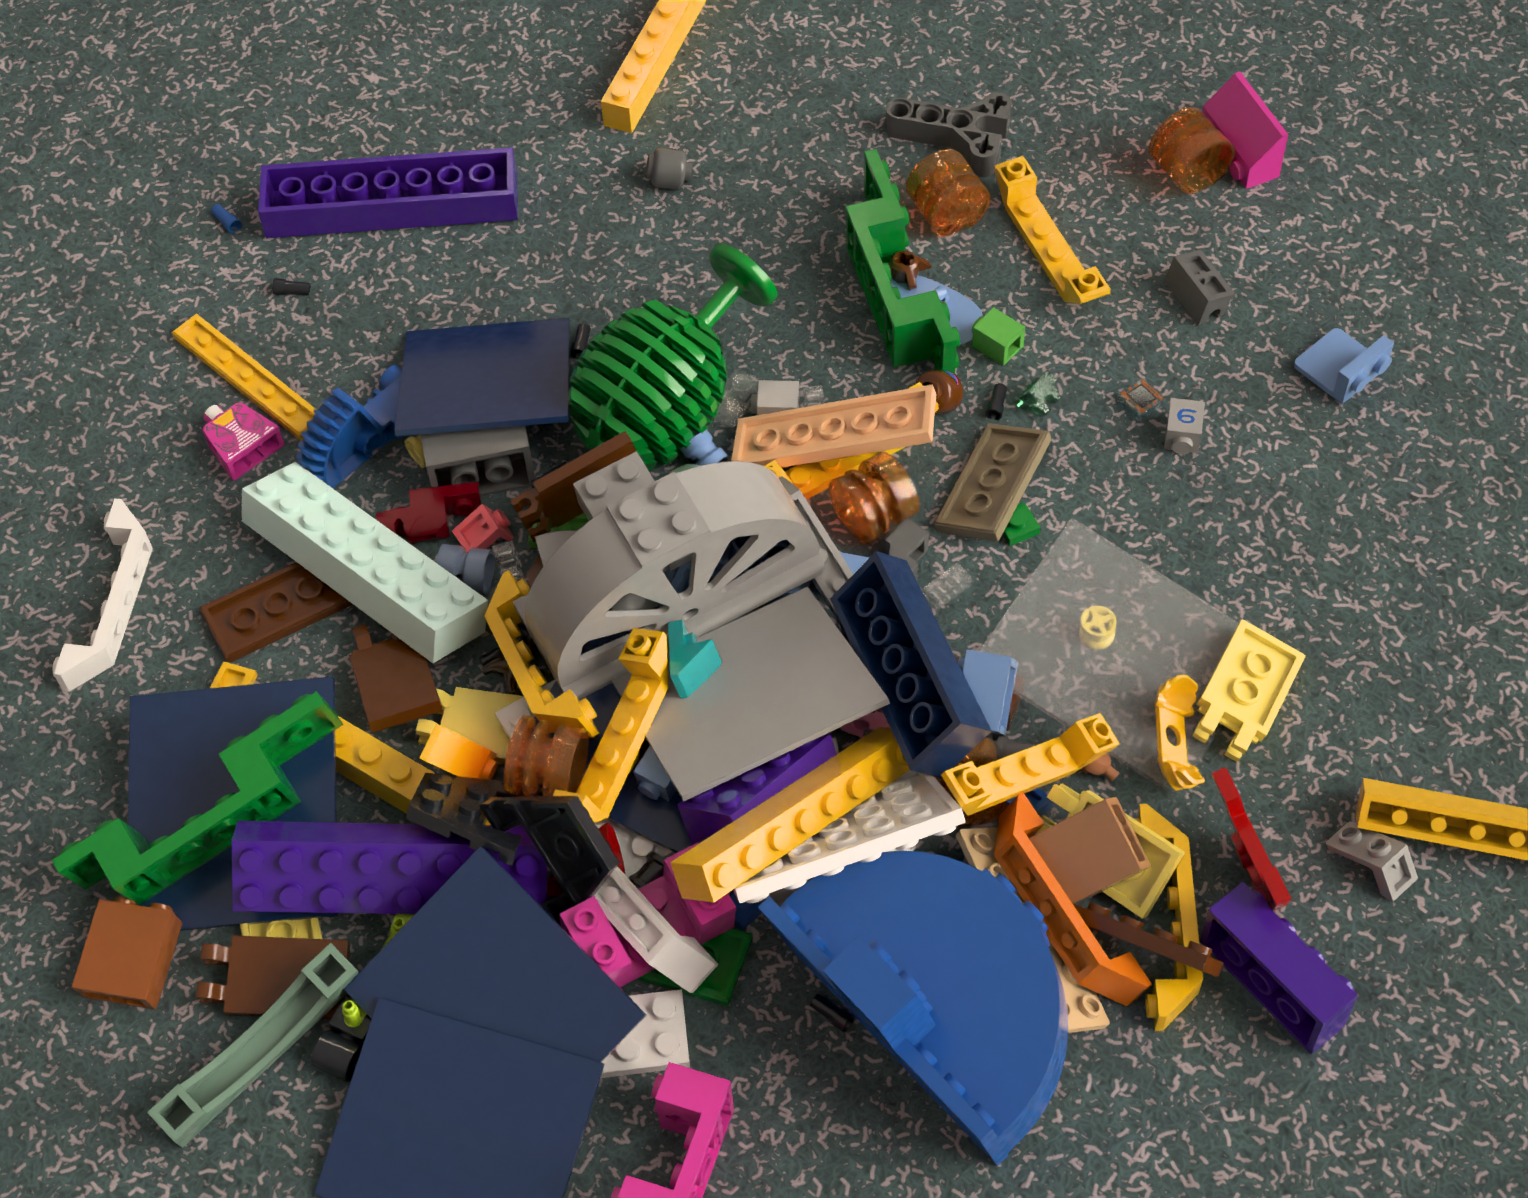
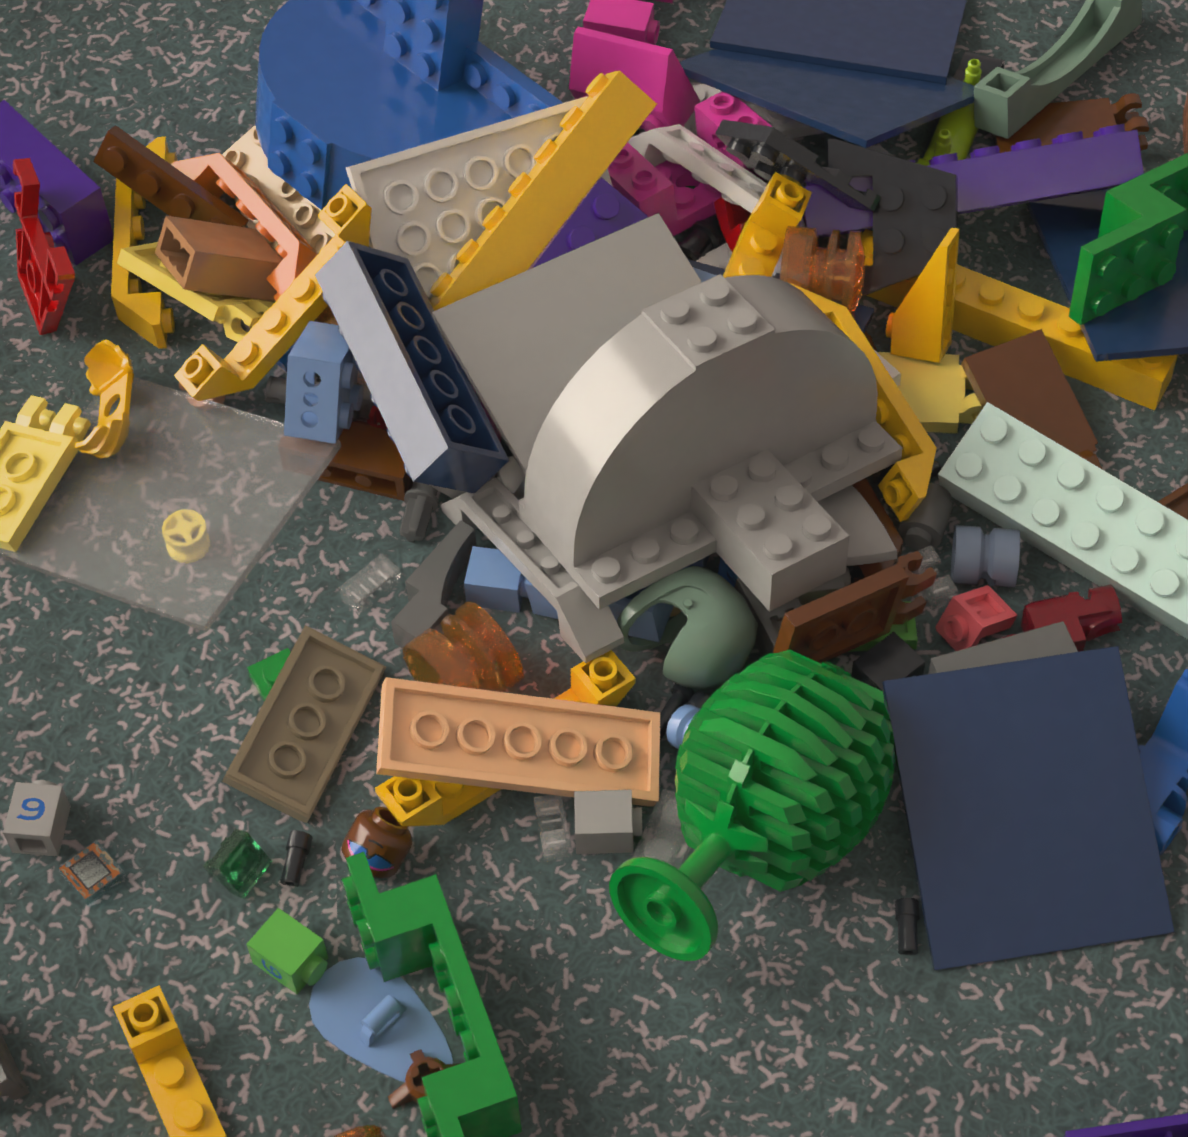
camera: 175 degrees right, 0 degrees up
(688, 1027) = (646, 65): none -> dark pink slope

